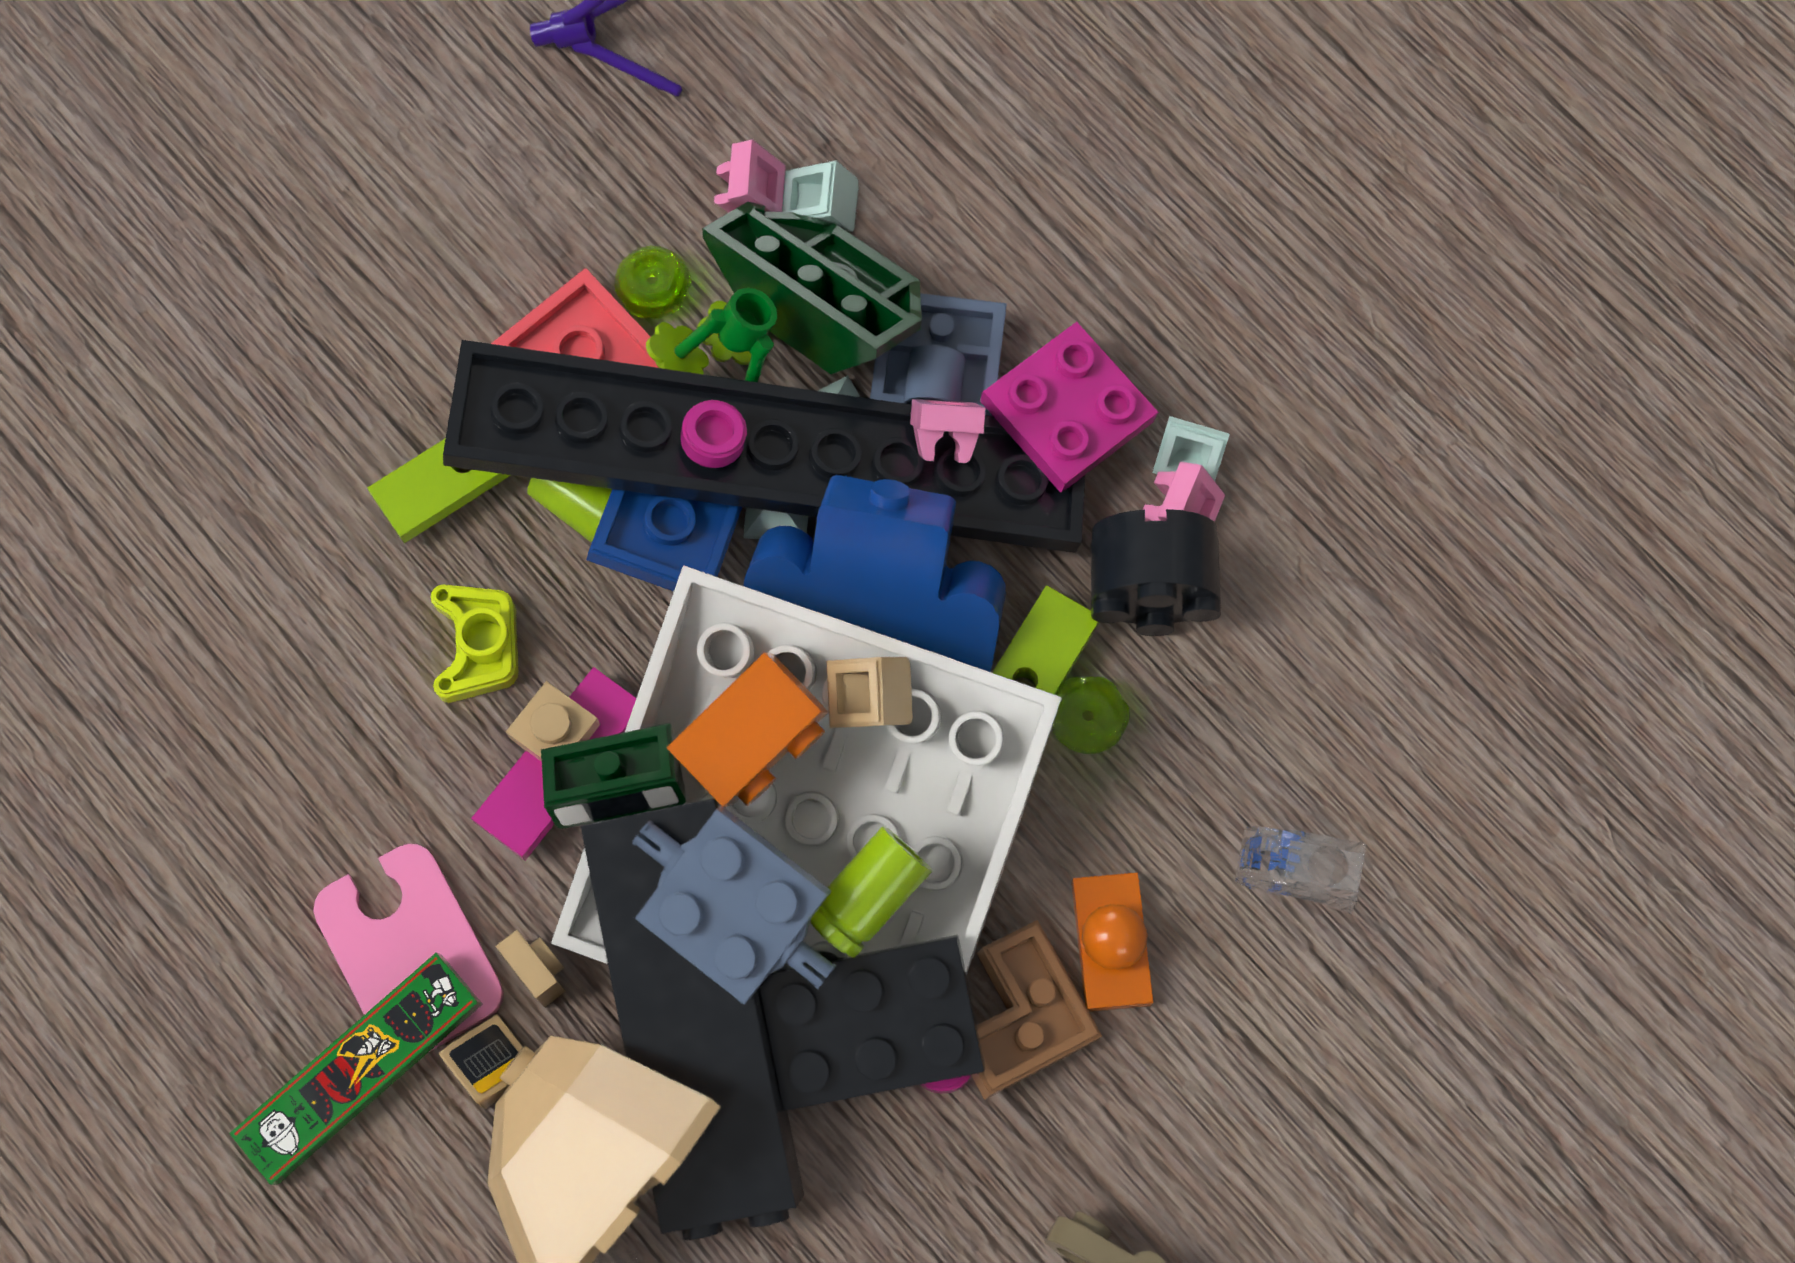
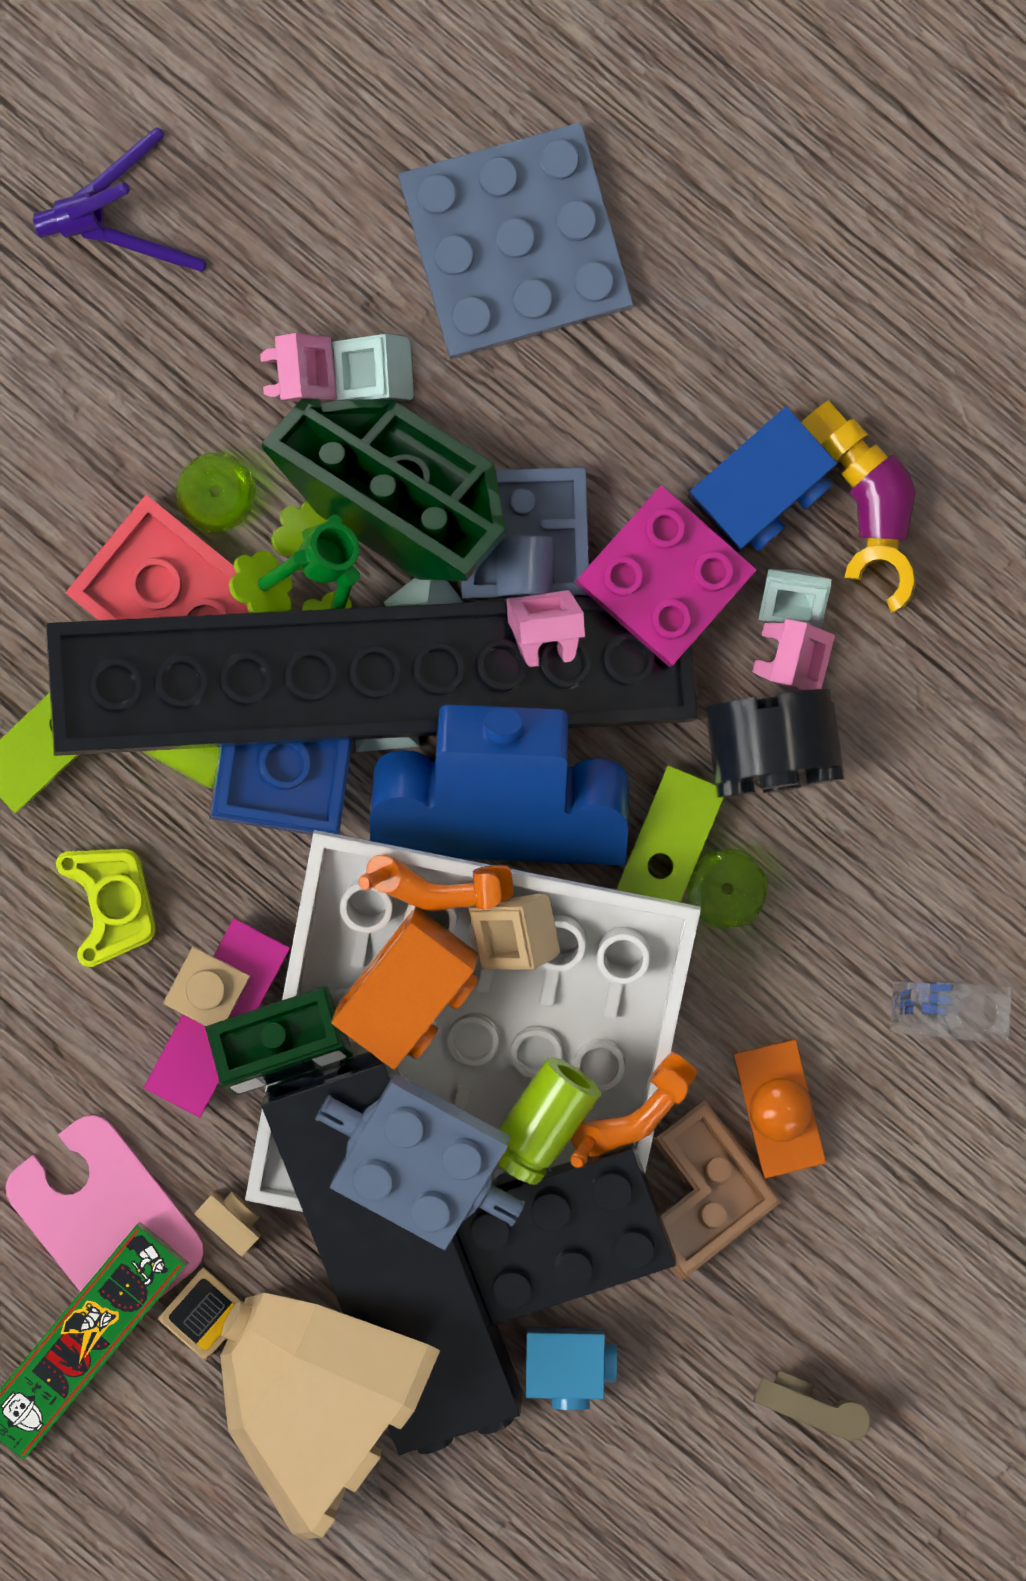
camera: 10 degrees left, 15 degrees up
(713, 434) = (315, 678): dark pink tile -> none
(756, 619) = (390, 876): none -> orange piece
(855, 1168) = (568, 1365): none -> dark azure brick
(930, 921) = (604, 1135): none -> orange piece
(970, 109) = (515, 240): none -> sand blue plate
(1177, 339) = (763, 481): none -> blue brick
(1287, 377) = (881, 492): none -> piece

